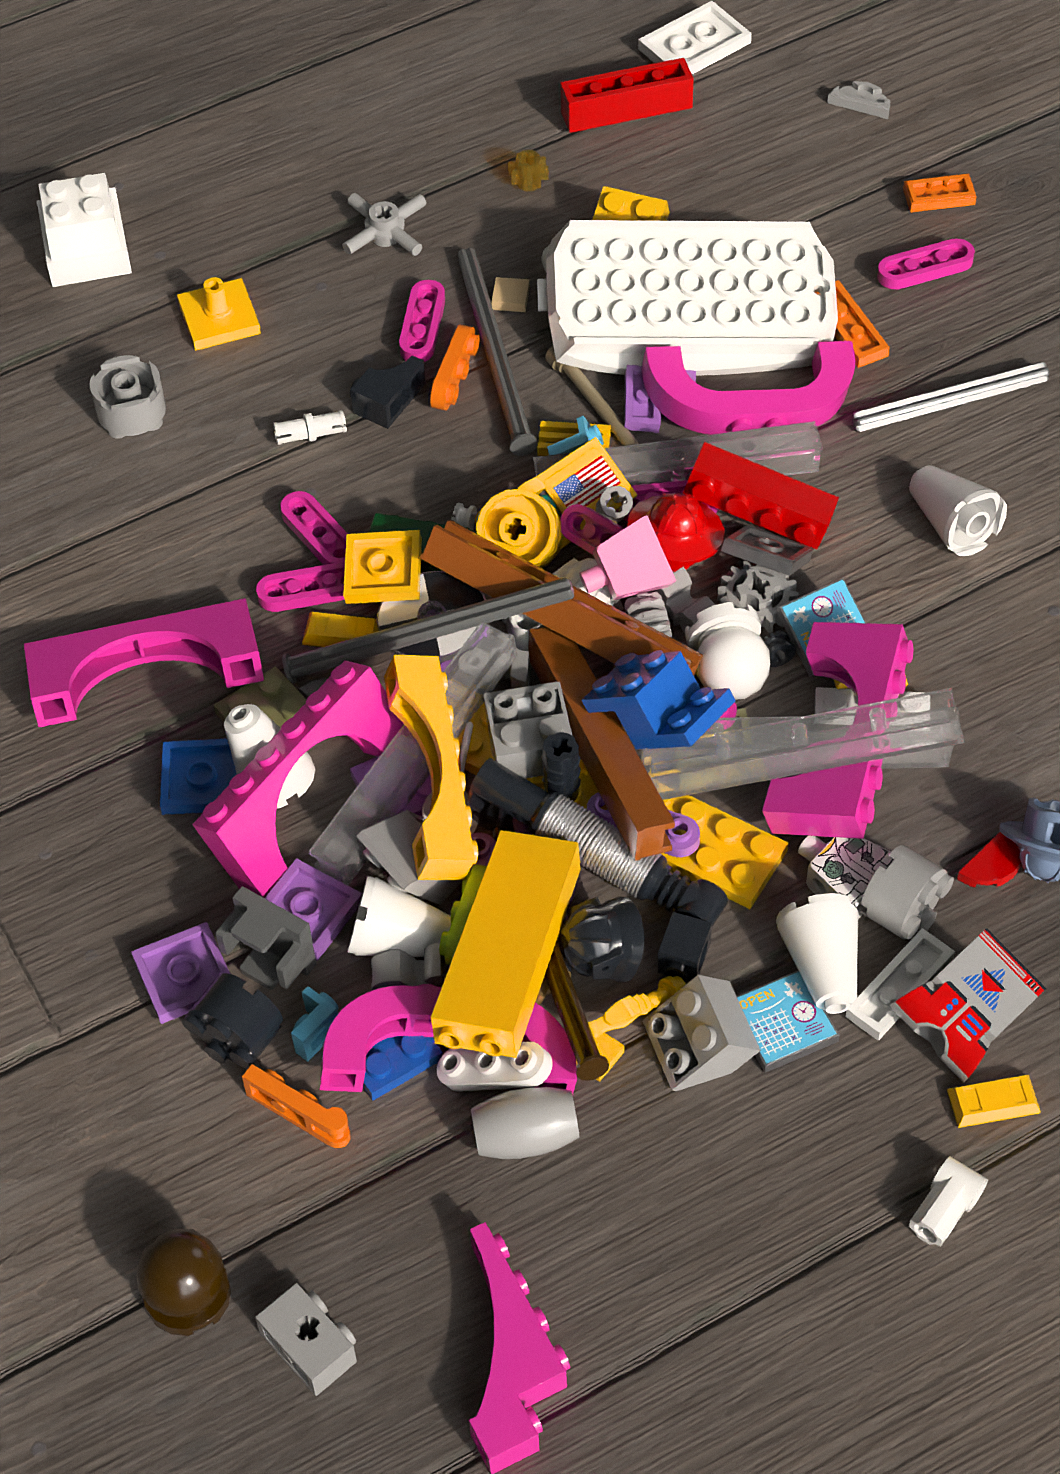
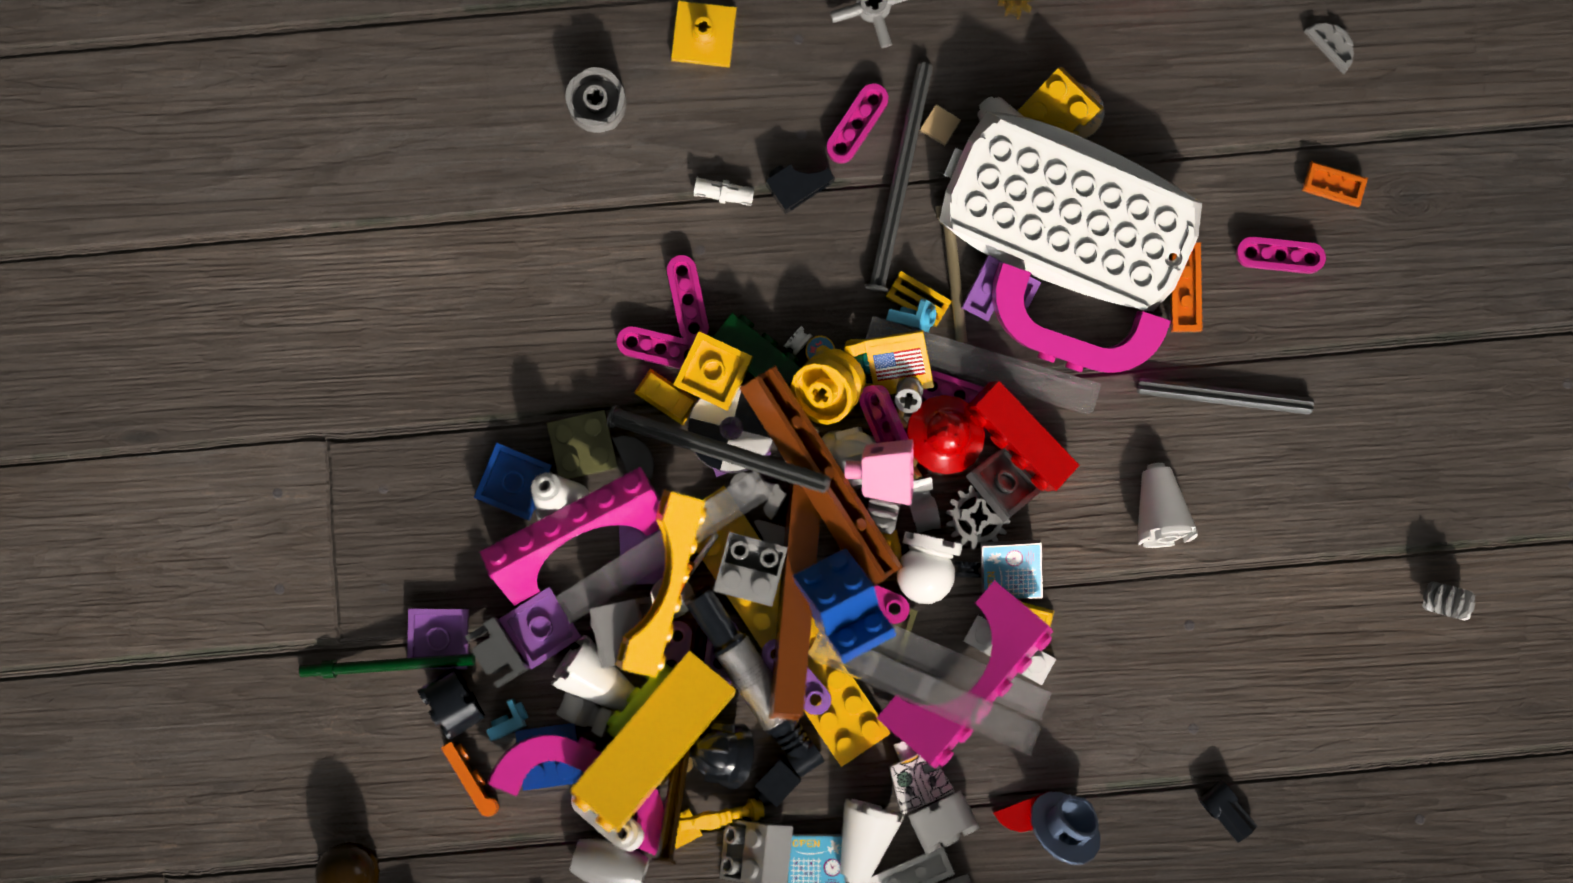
camera: 20 degrees right, 30 degrees up
(59, 1061) = (331, 668): none -> dark green bar
(71, 664) = (455, 342): dark pink arch -> none
(454, 367) = (859, 186): orange plate -> none
(561, 765) = (745, 618): black axle -> none

